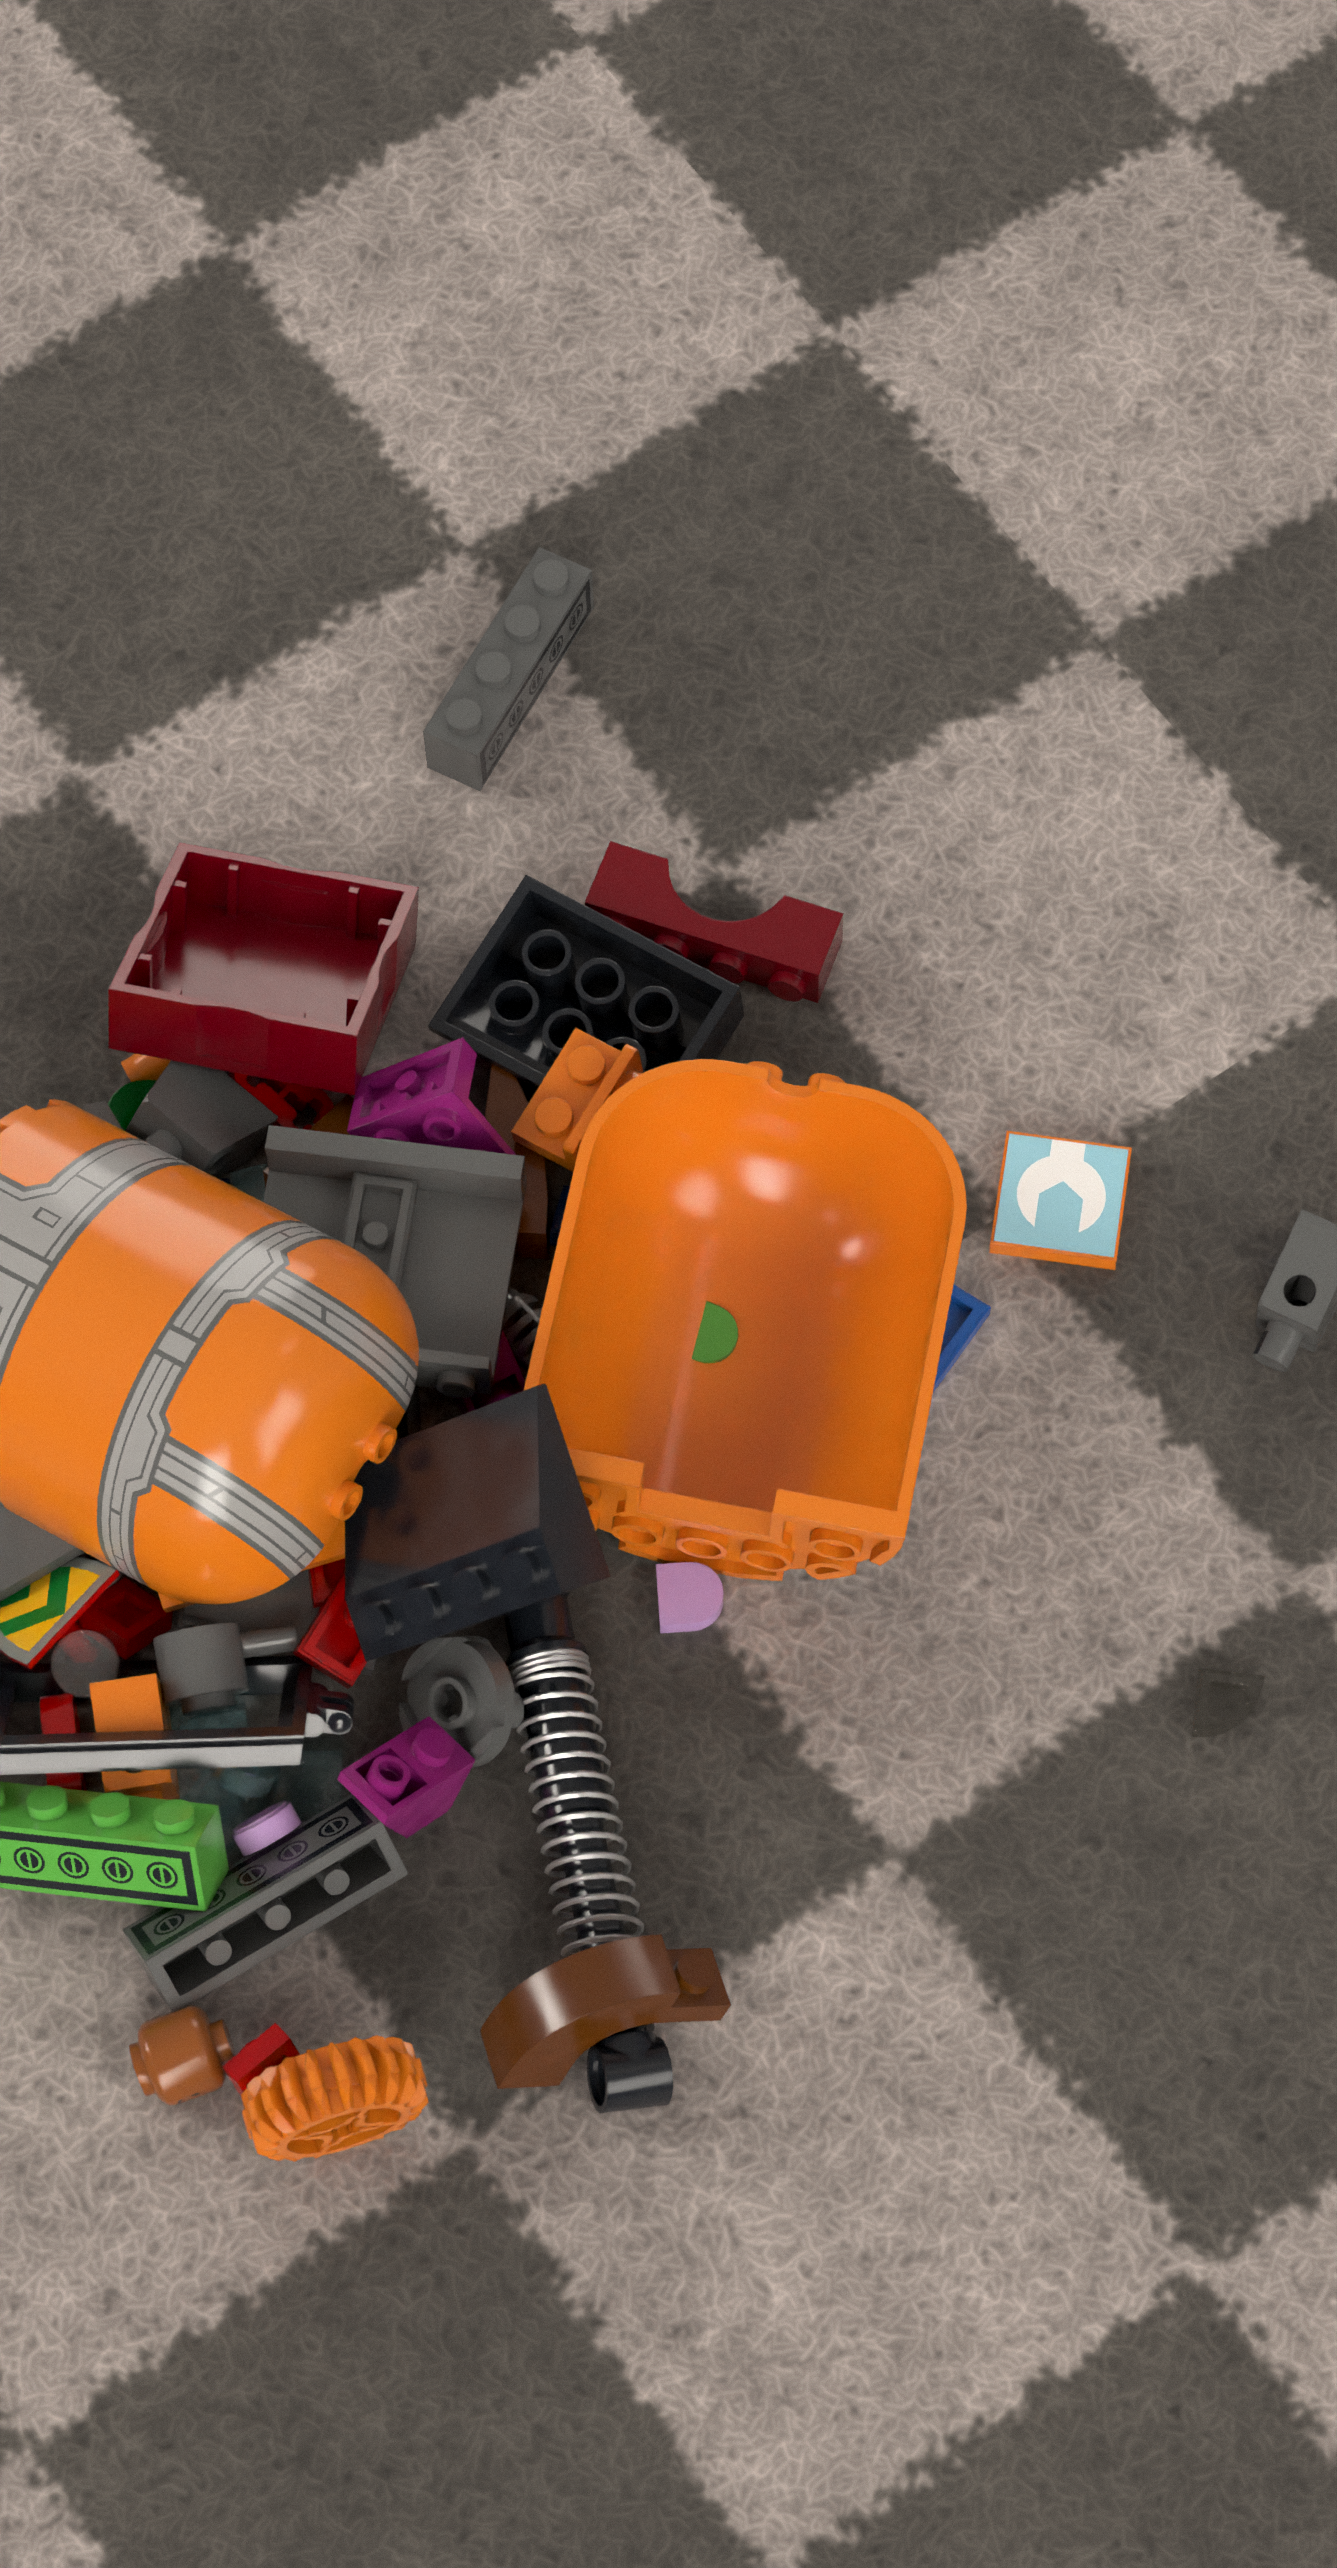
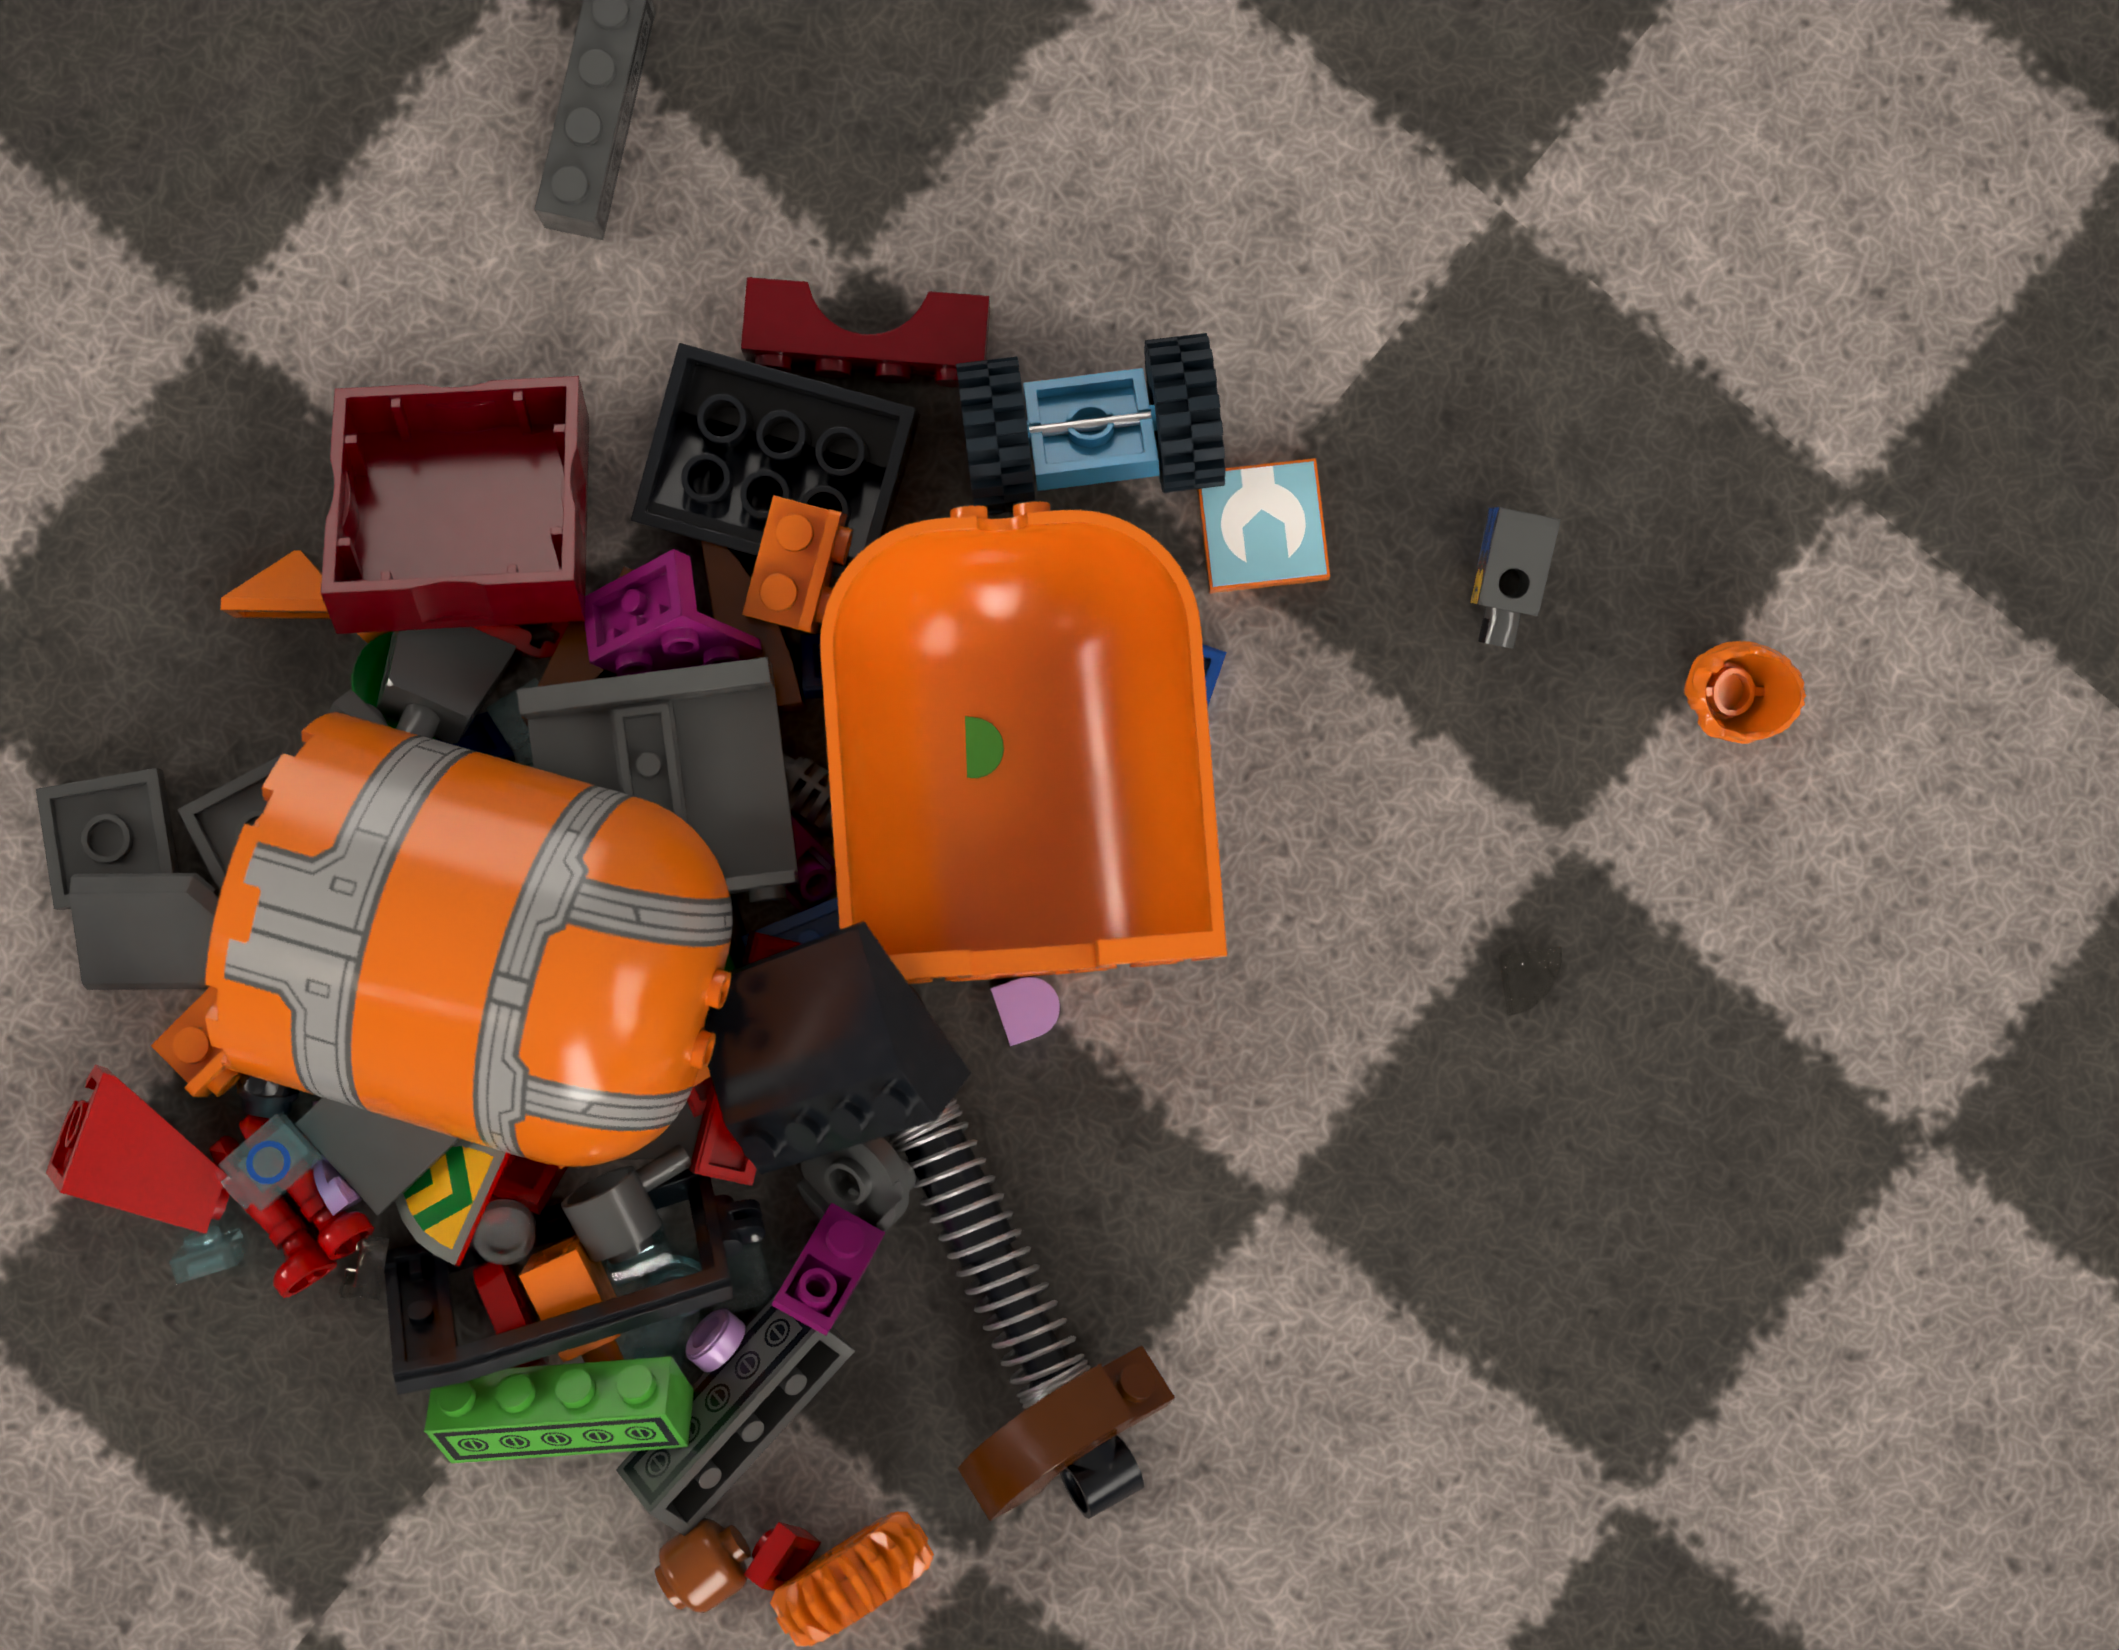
camera: 20 degrees left, 20 degrees up
(65, 1024) = (280, 592): none -> orange slope
(916, 1050) = (1094, 425): none -> plate

